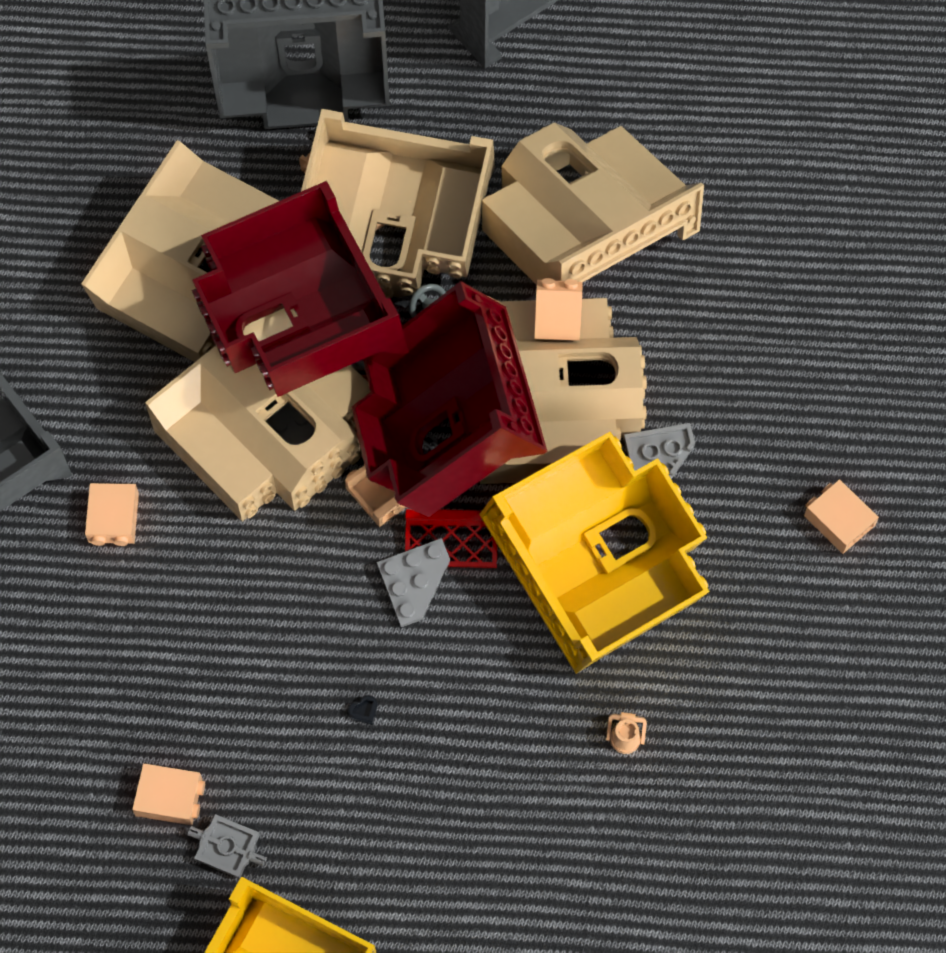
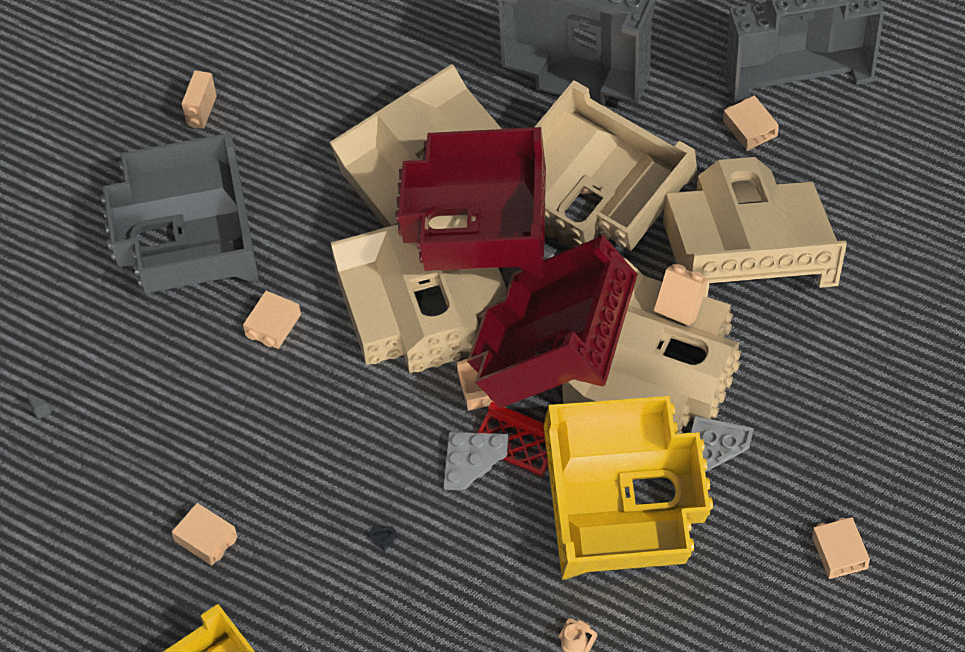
camera: 30 degrees right, 10 degrees down
(227, 846) = (228, 589): light grey plate -> none
(514, 81) = (750, 123): none -> light nougat brick

